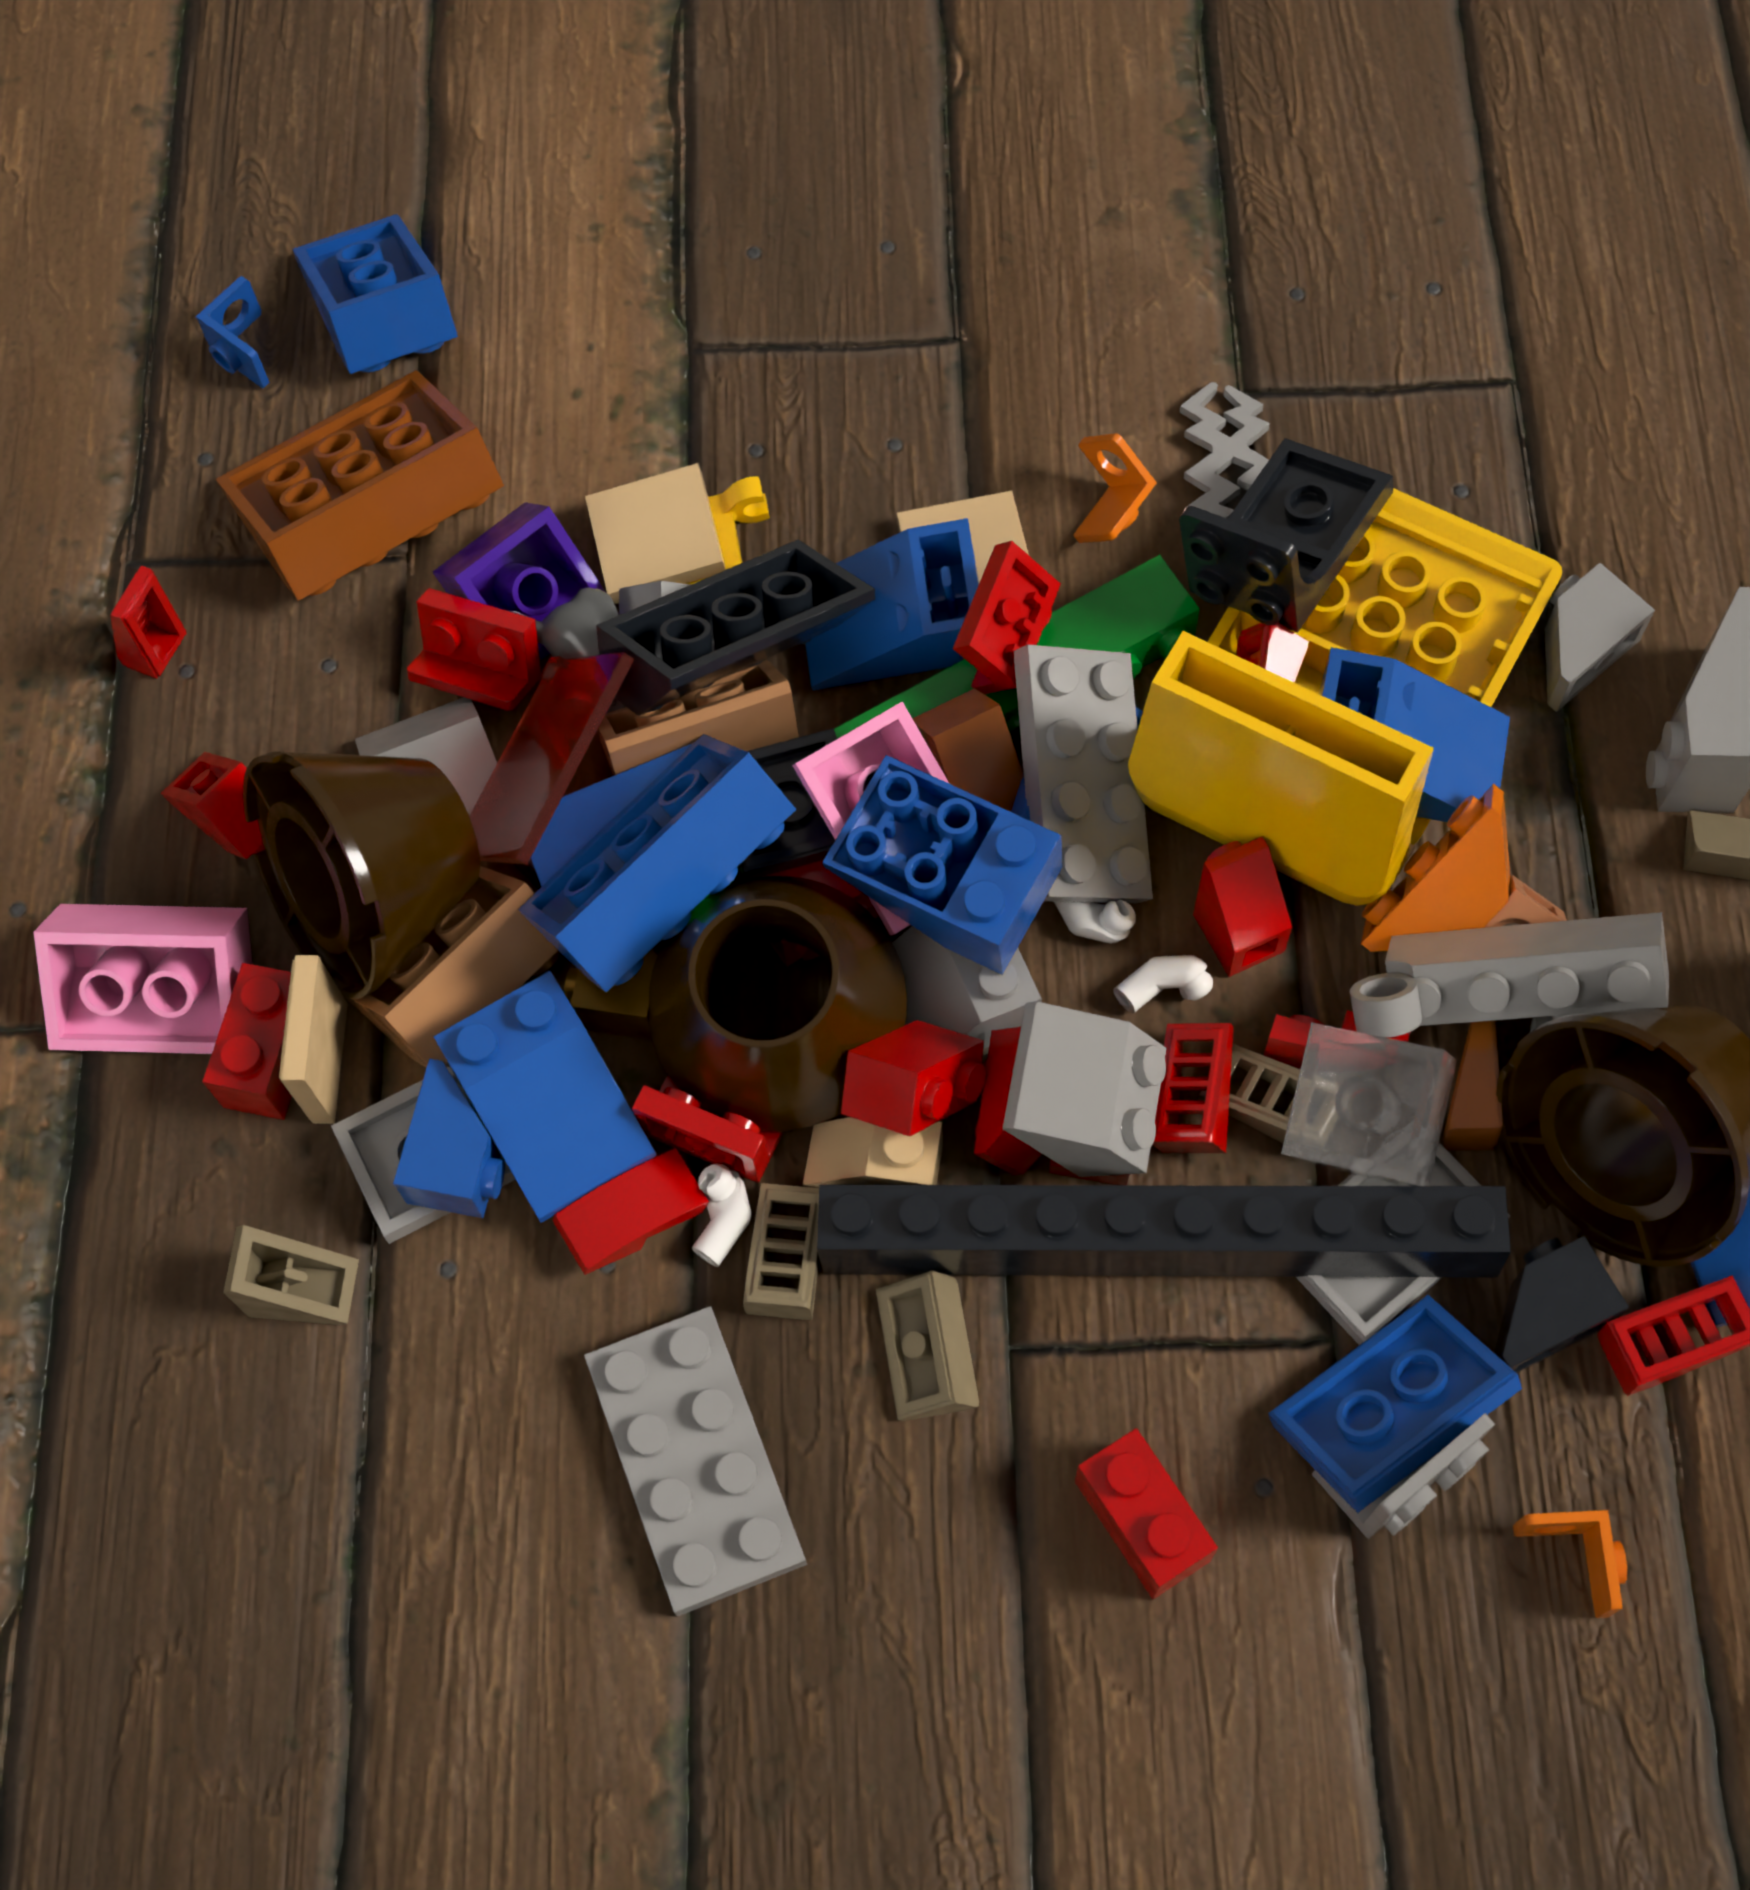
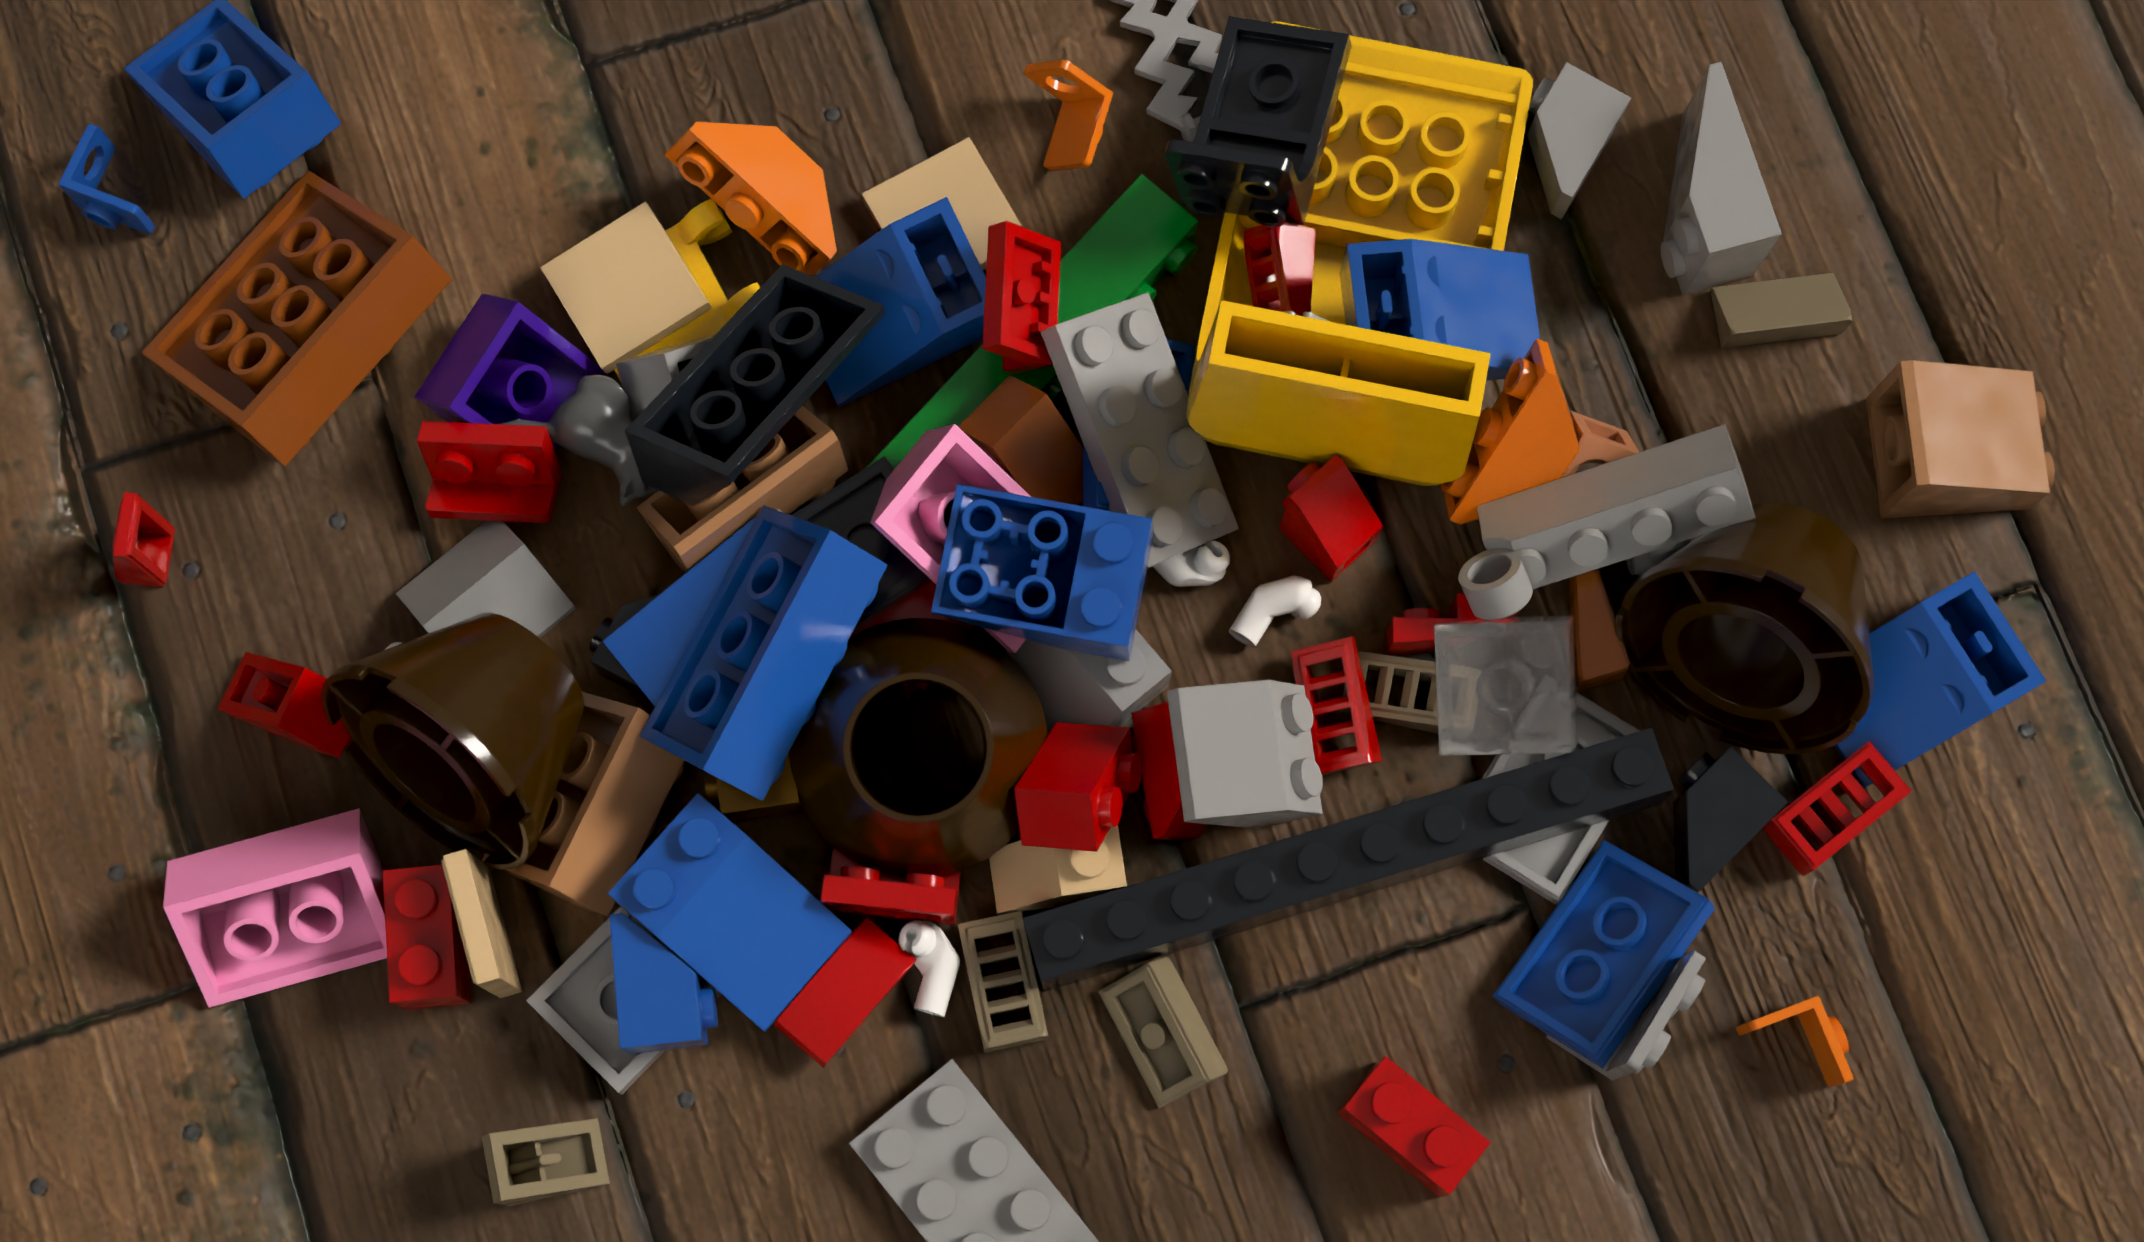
camera: 25 degrees left, 10 degrees up
(544, 754) = (612, 571): clear red piece -> none
(804, 473) = (762, 188): none -> orange slope

